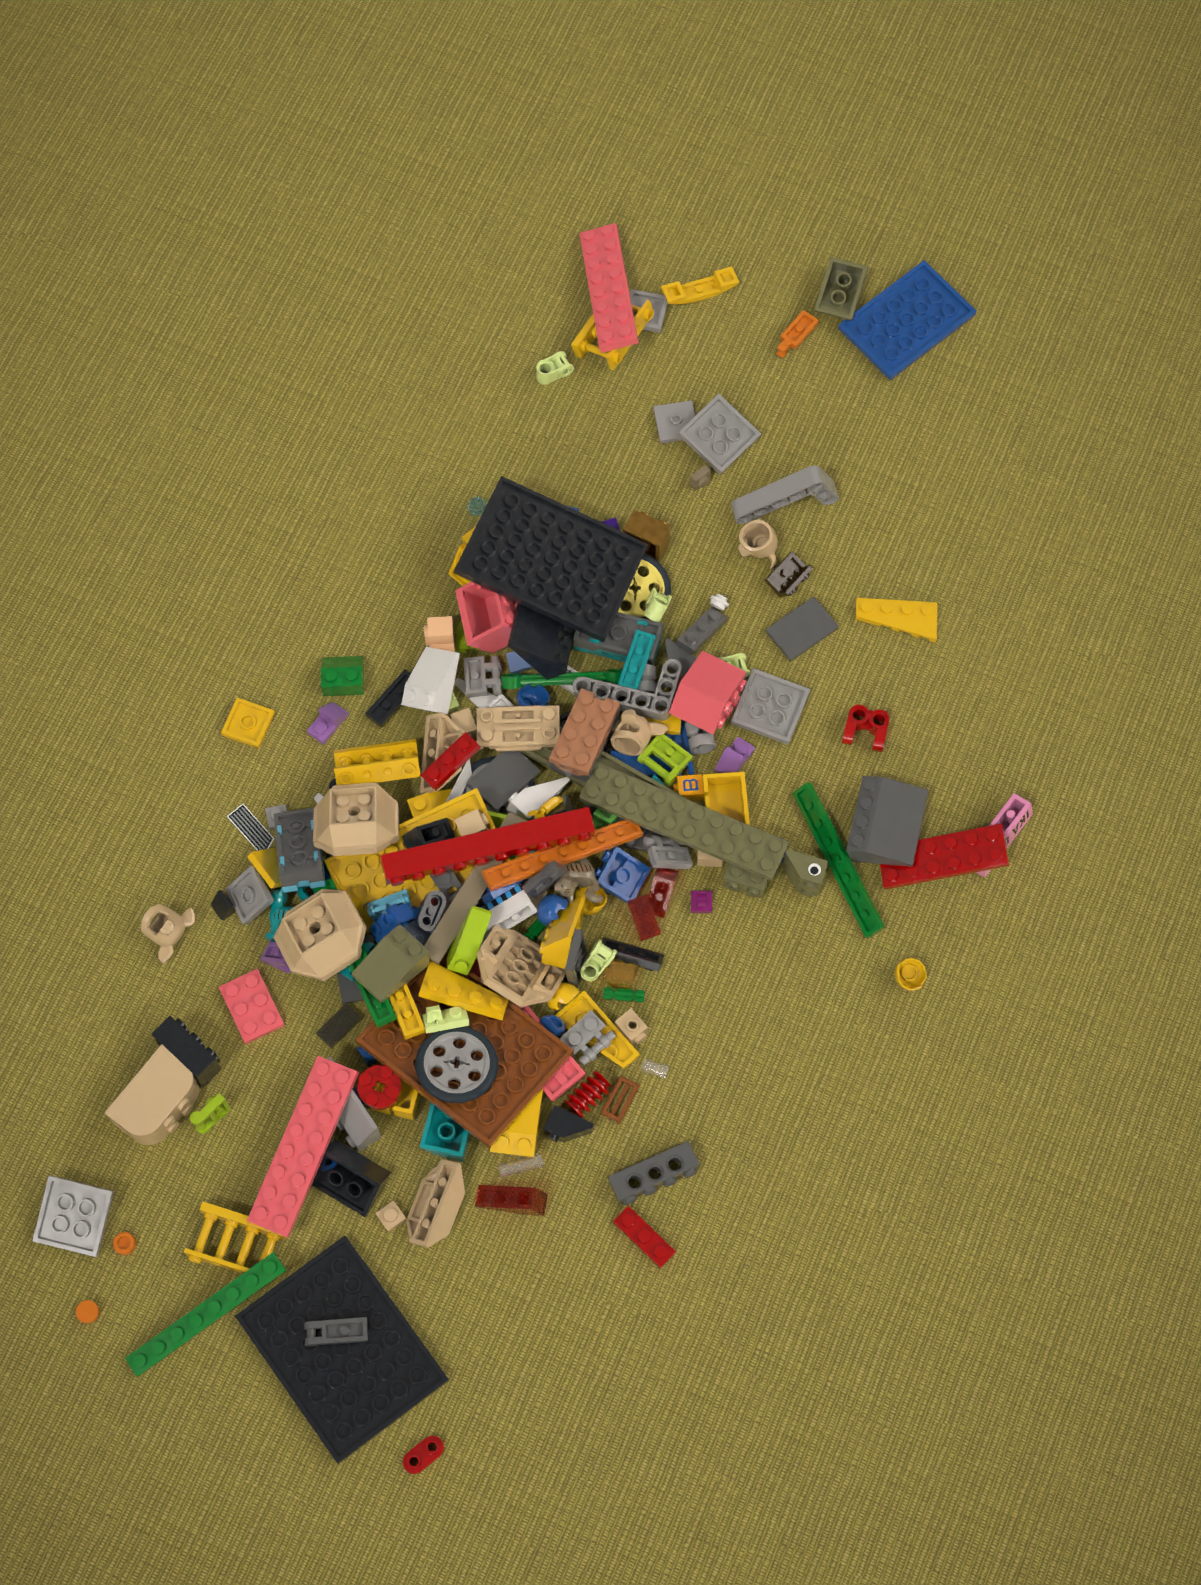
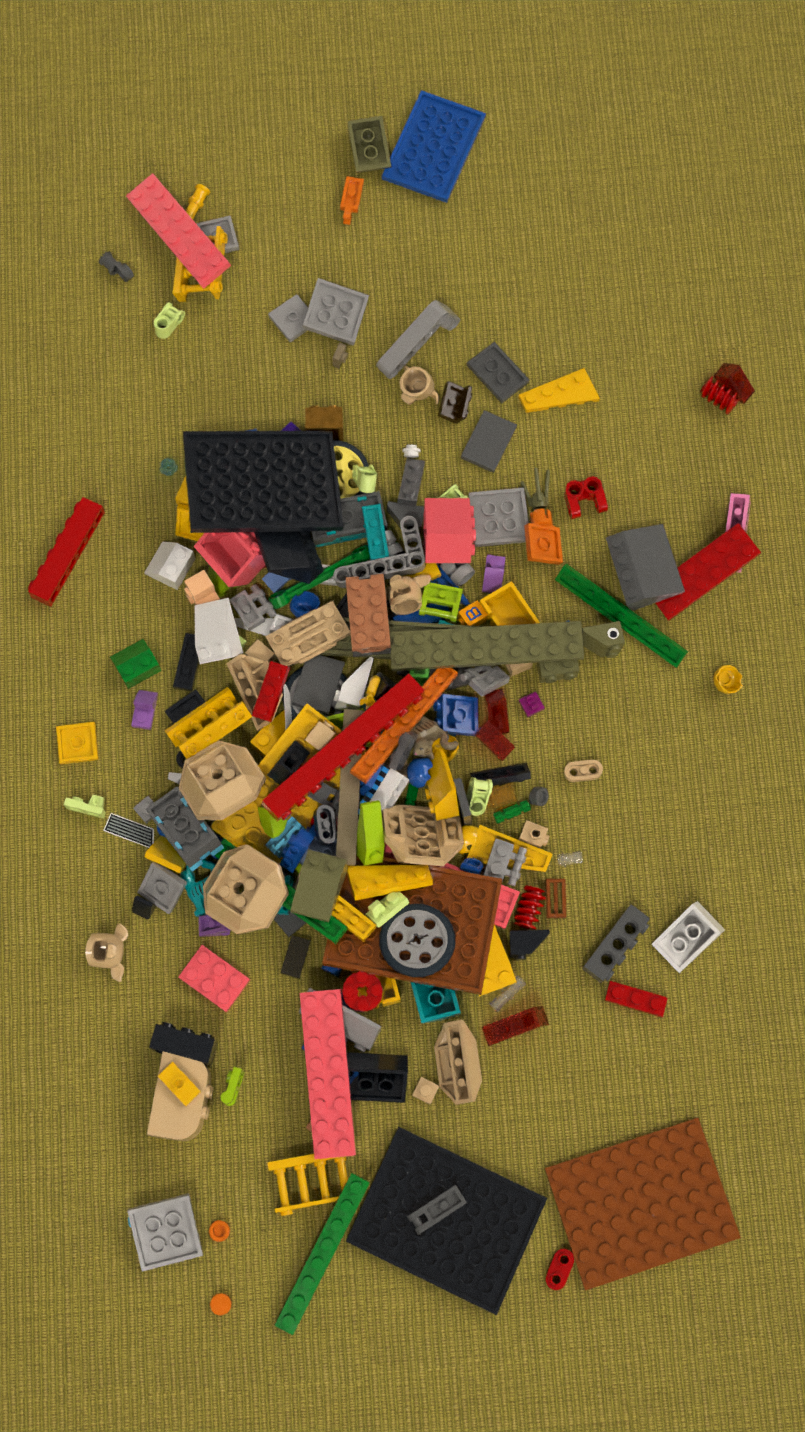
camera: 30 degrees left, 5 degrees up
(159, 1081) = (179, 1084): none -> yellow plate
(228, 790) = (93, 808): none -> yellowish green hinge
(336, 539) = (66, 551): none -> red brick
(365, 737) = (184, 706): none -> black plate
(380, 889) = (269, 824): none -> lime brick
(428, 598) = (170, 564): none -> white slope
(531, 295) = (116, 267): none -> dark grey connector
(539, 1436) = (641, 1203): none -> dark orange plate
(644, 268) = (196, 201): none -> yellow pin
(658, 993) = (538, 796): none -> dark grey tile
(700, 289) = (253, 196): yellow slope -> none
(716, 990) = (582, 769): none -> tan plate
(730, 1203) = (688, 936): none -> white slope
(801, 747) = (543, 538): none -> orange plate
(818, 709) = (538, 500): none -> olive plant
(848, 567) = (498, 372): none -> dark grey tile
(1058, 694) = (719, 395): none -> red piece
(1082, 688) = (734, 378): none -> clear red slope

